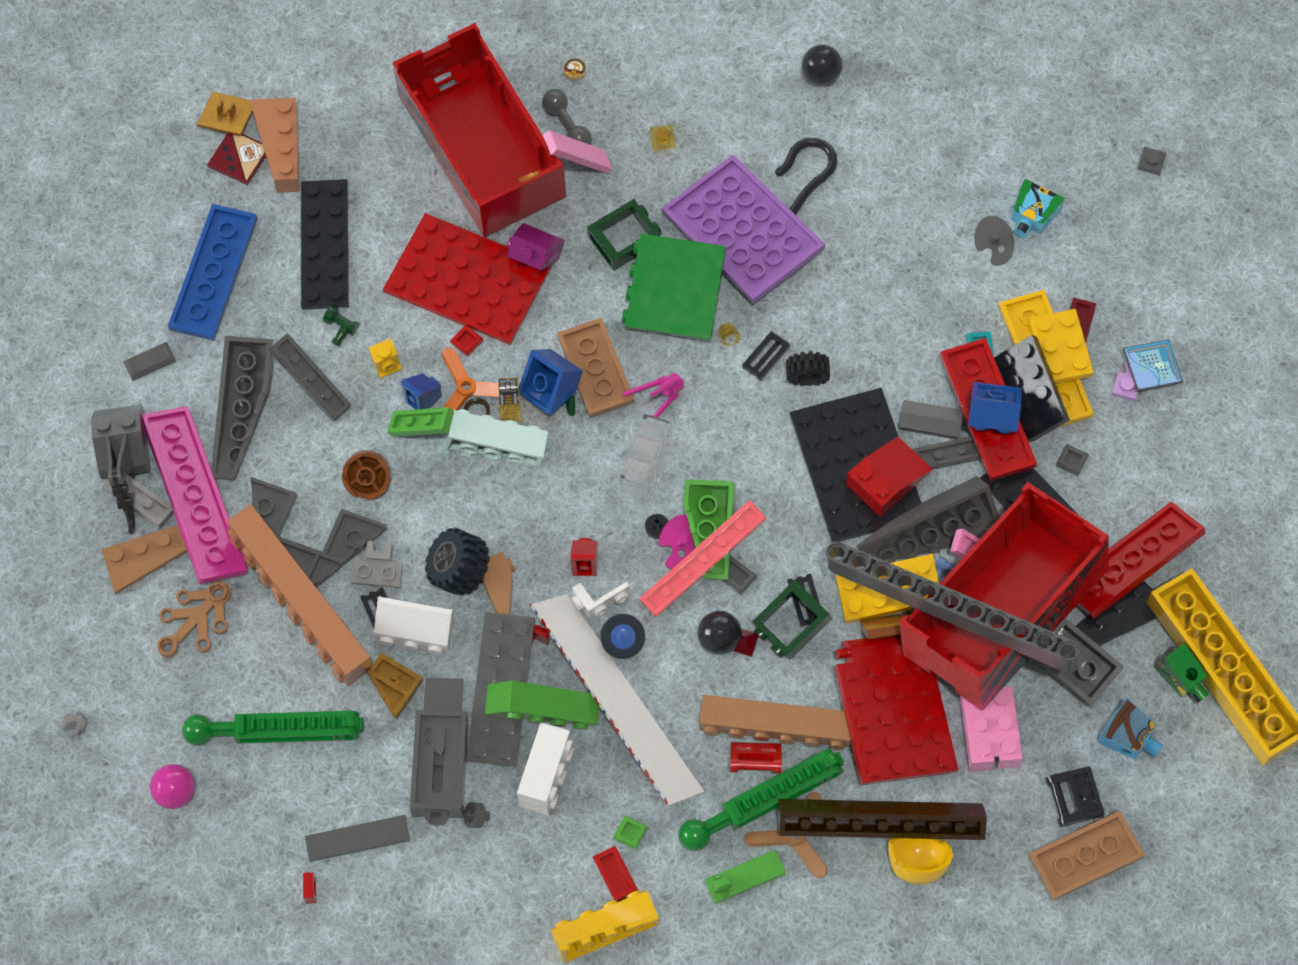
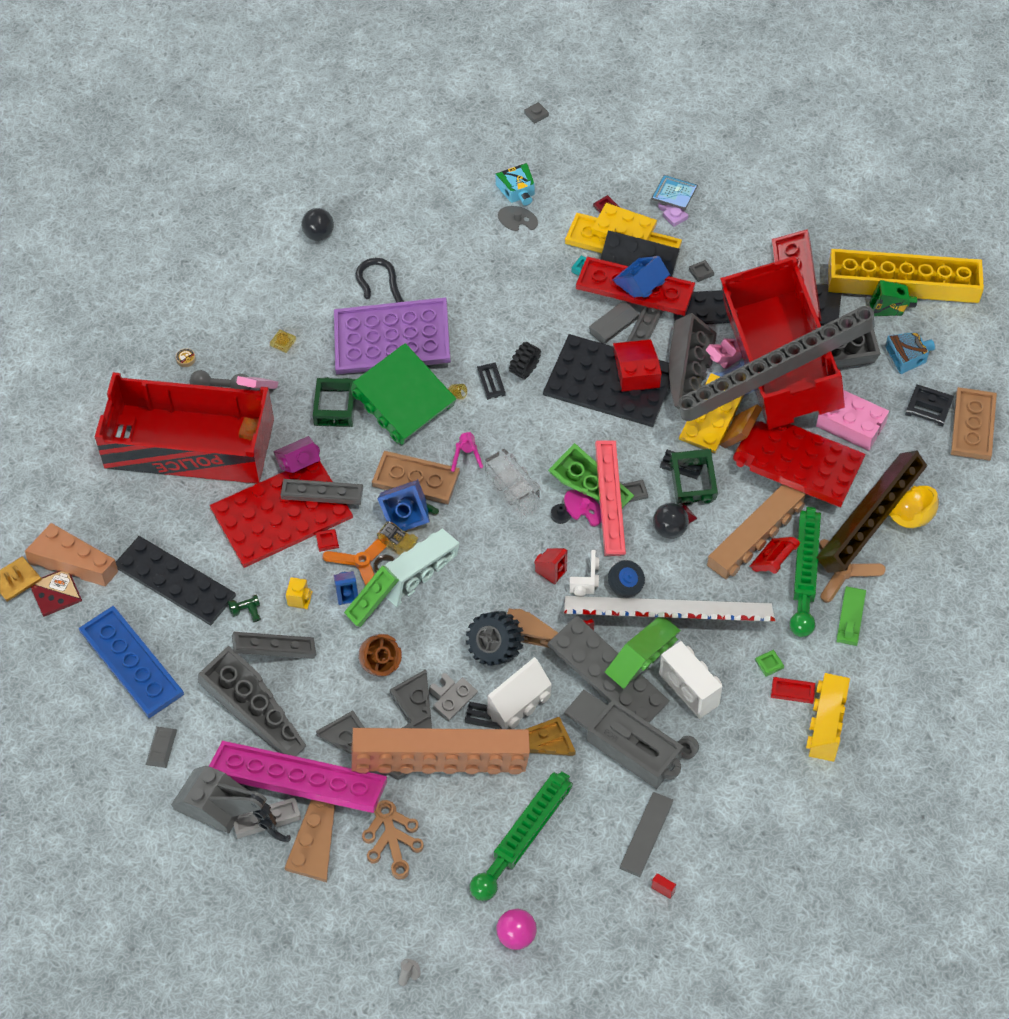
camera: 55 degrees left, 10 degrees down
(510, 297) = (322, 491): none -> dark grey tile

